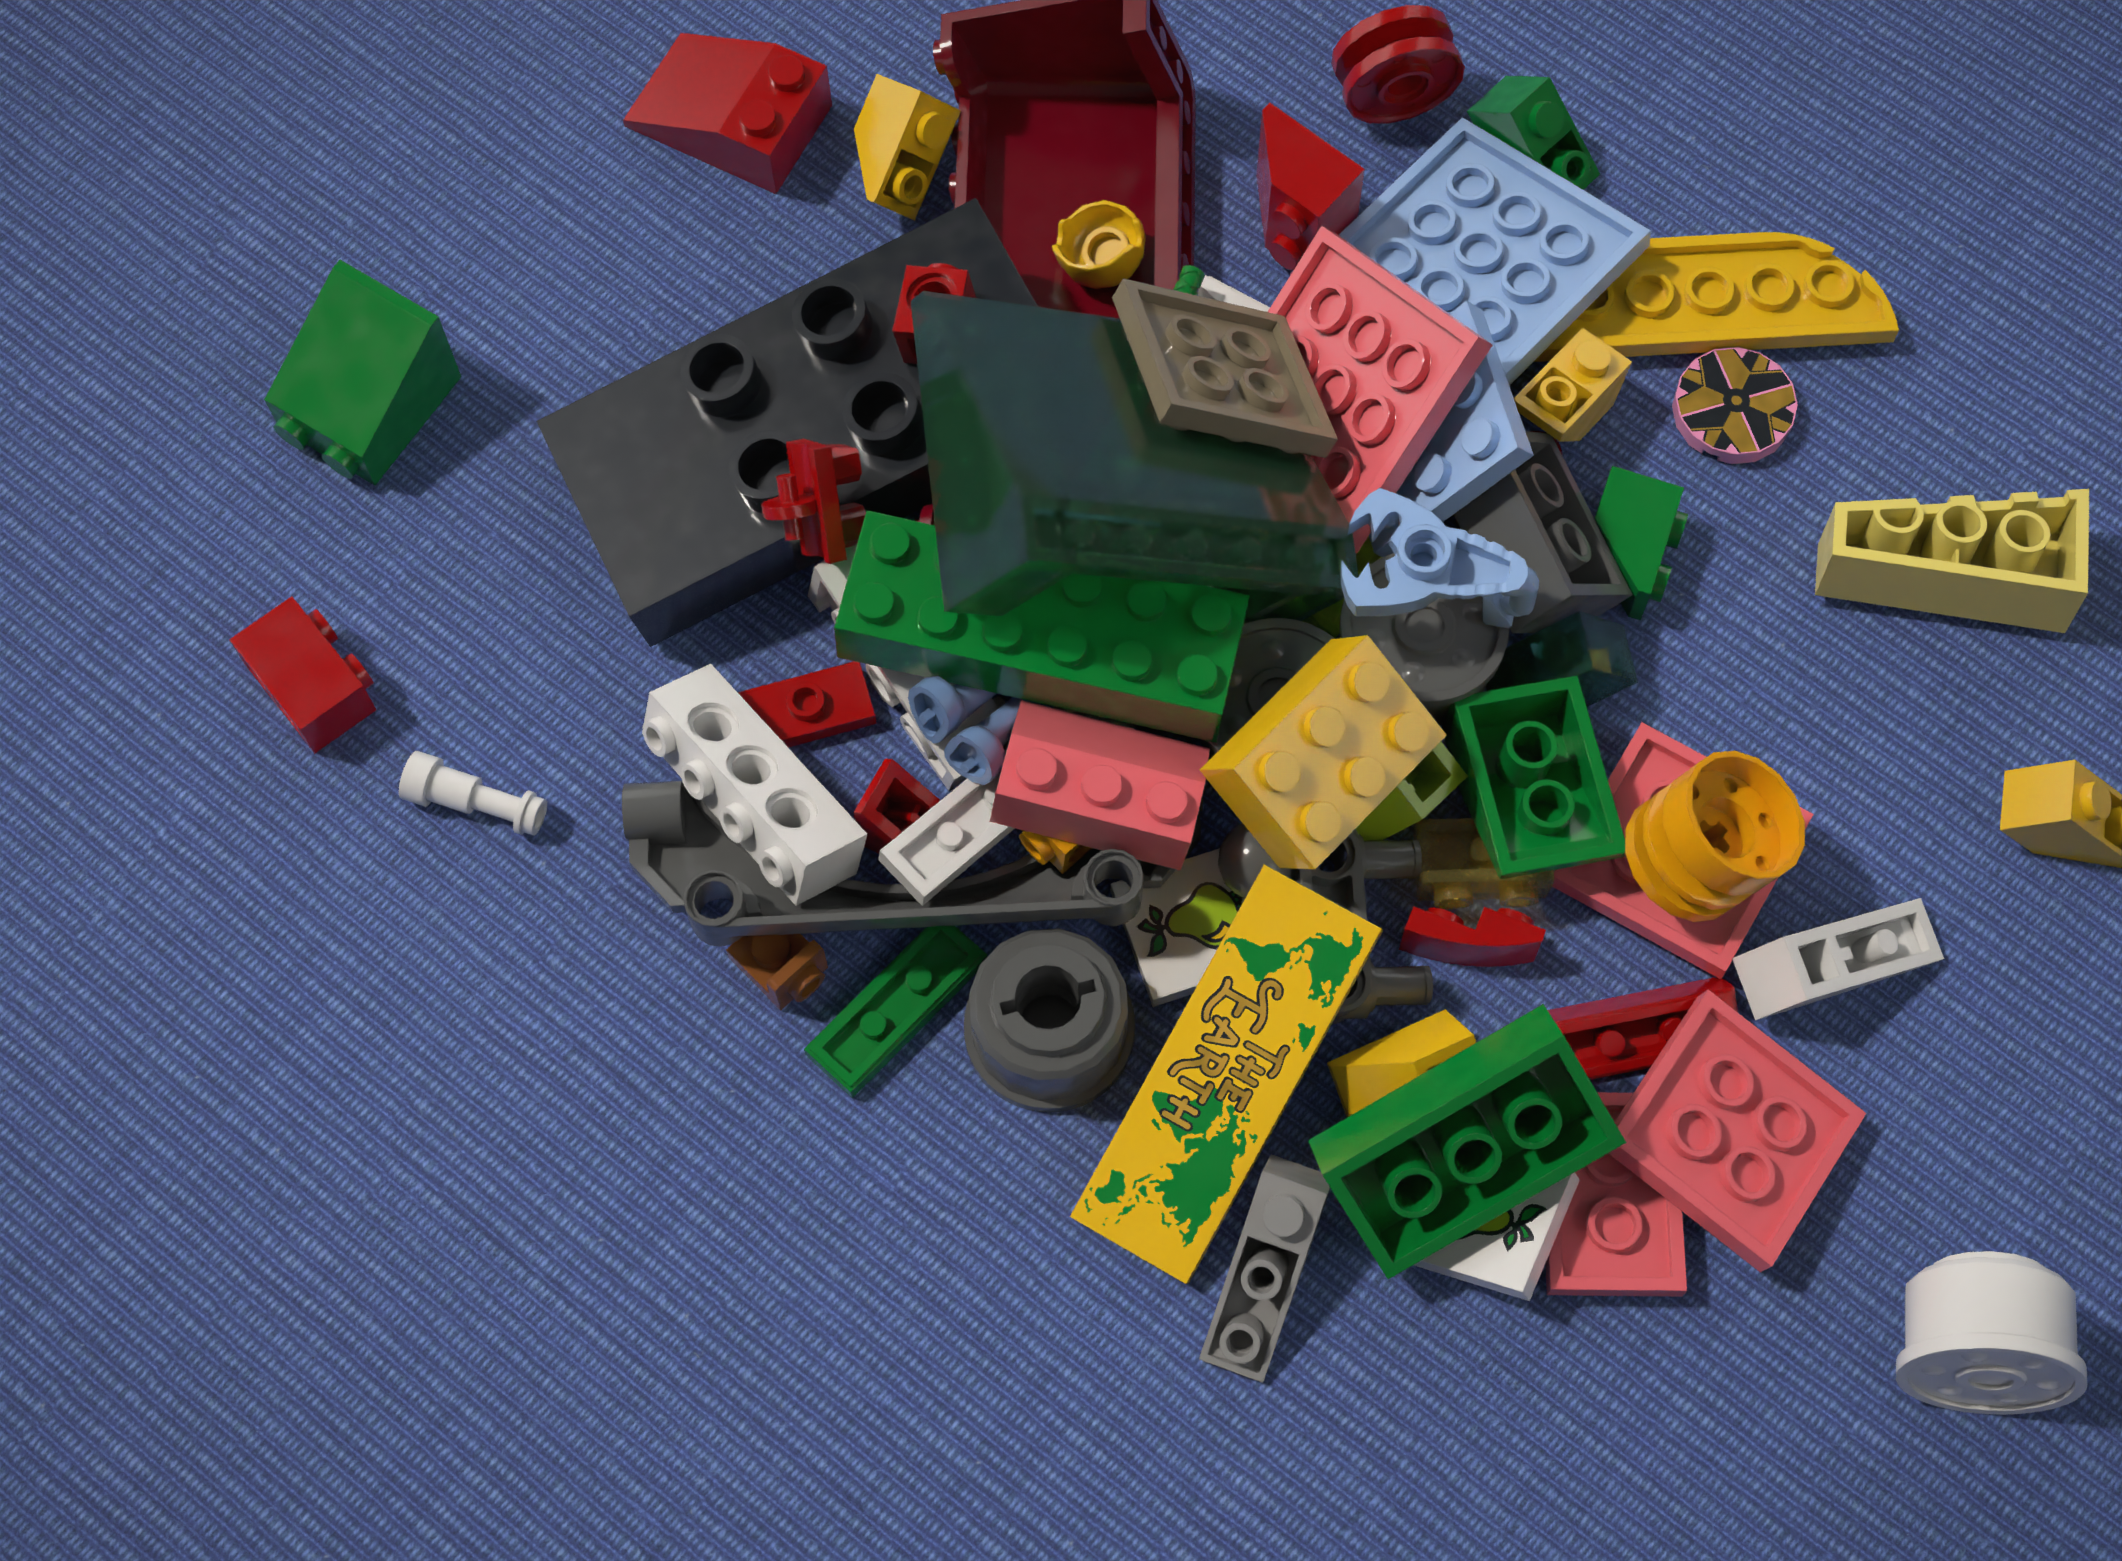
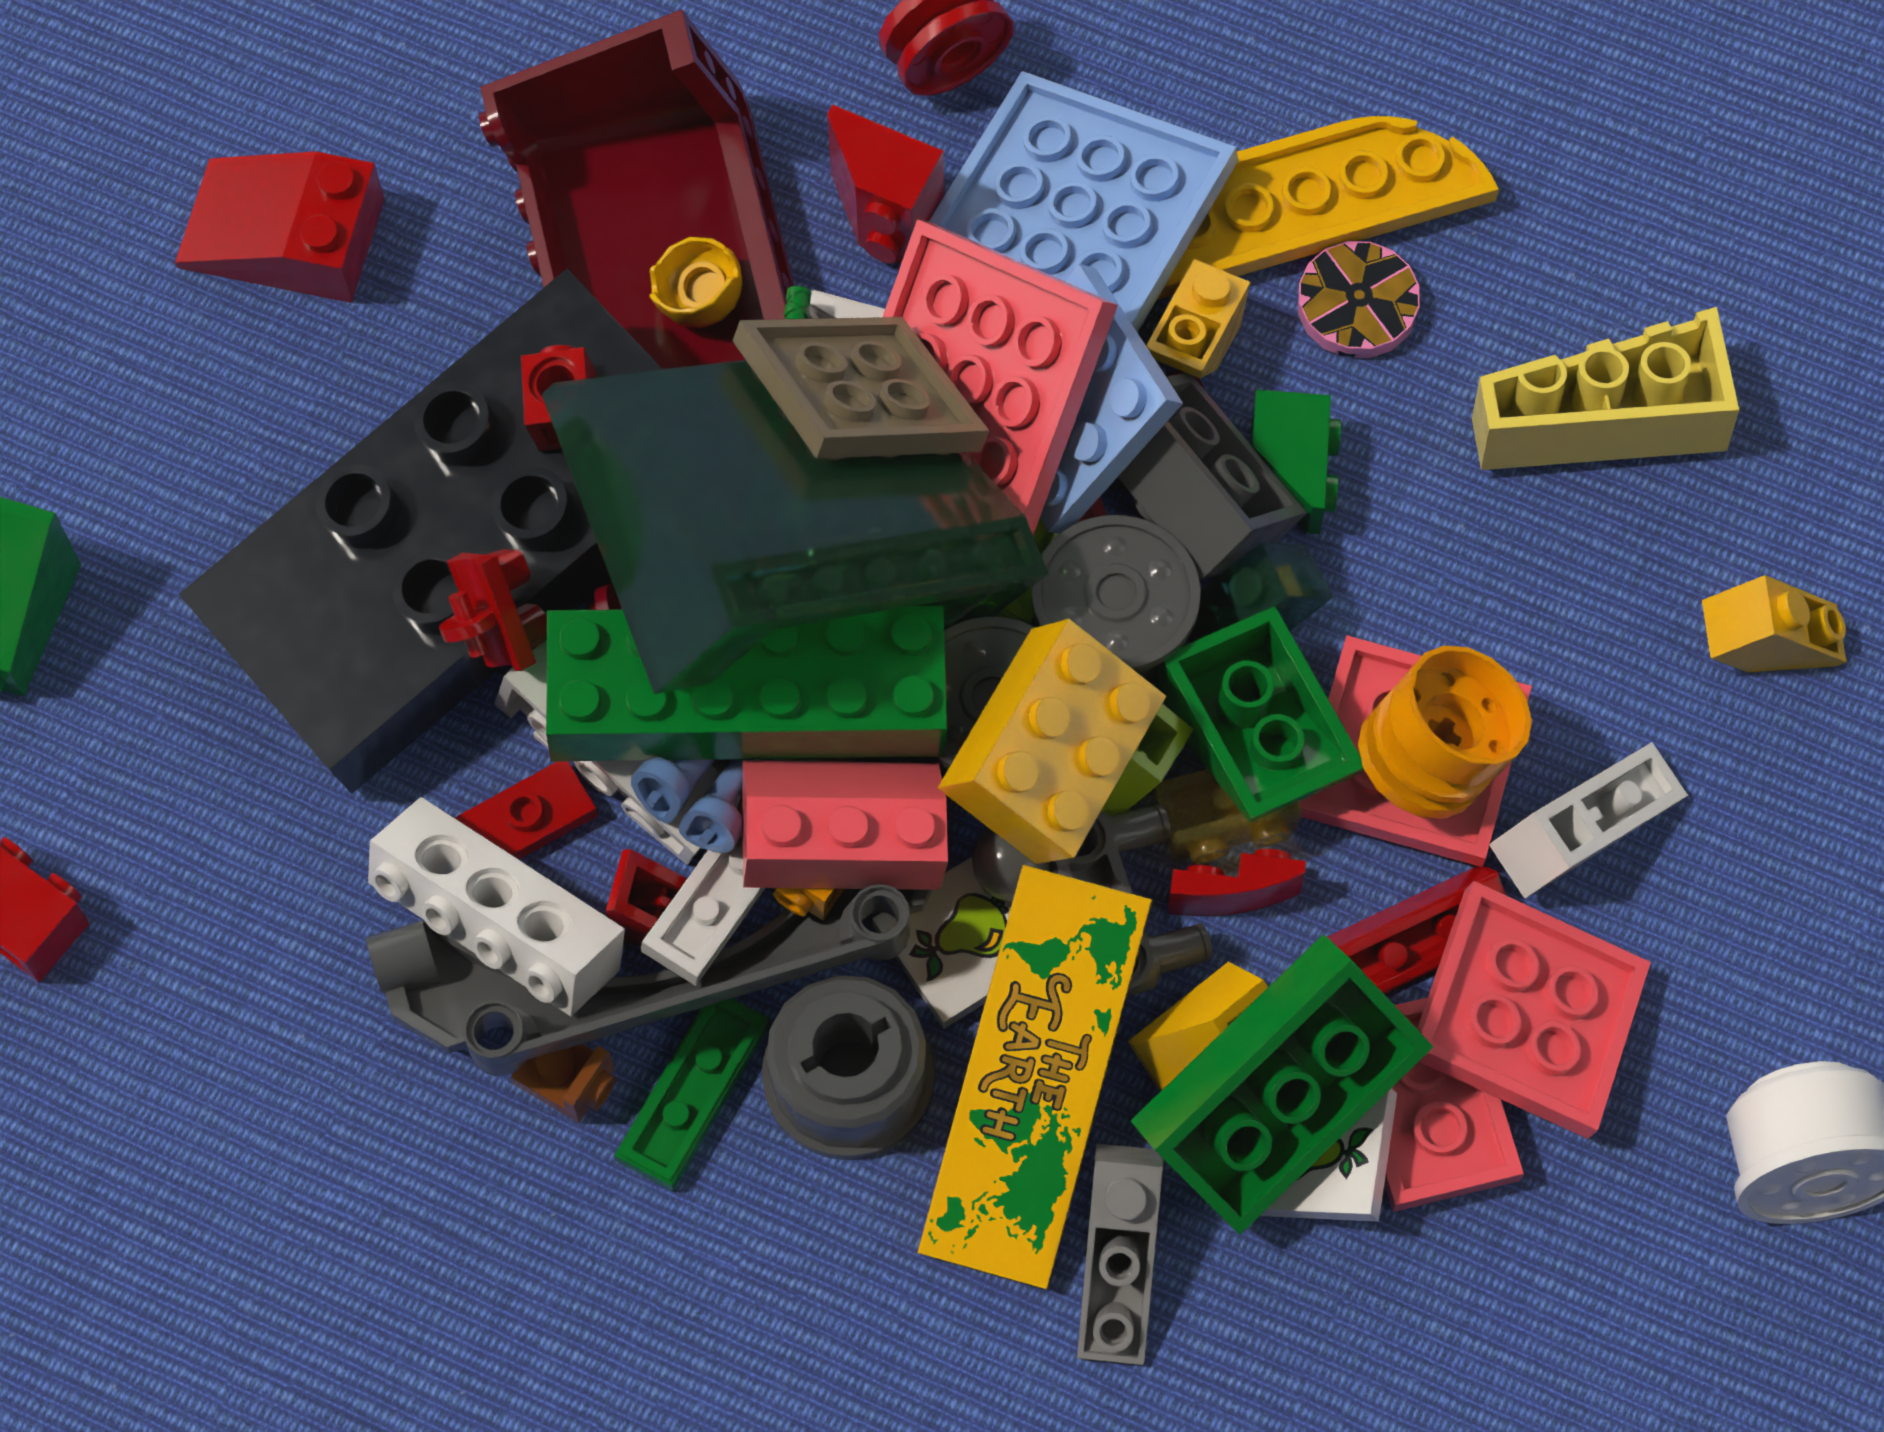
camera: 15 degrees left, 0 degrees up
(429, 781) = (168, 983): white piece -> none
(901, 143) = (469, 225): yellow slope -> none
(1436, 564) = (1115, 533): light blue animal -> none
(1534, 121) = (1096, 61): green slope -> none

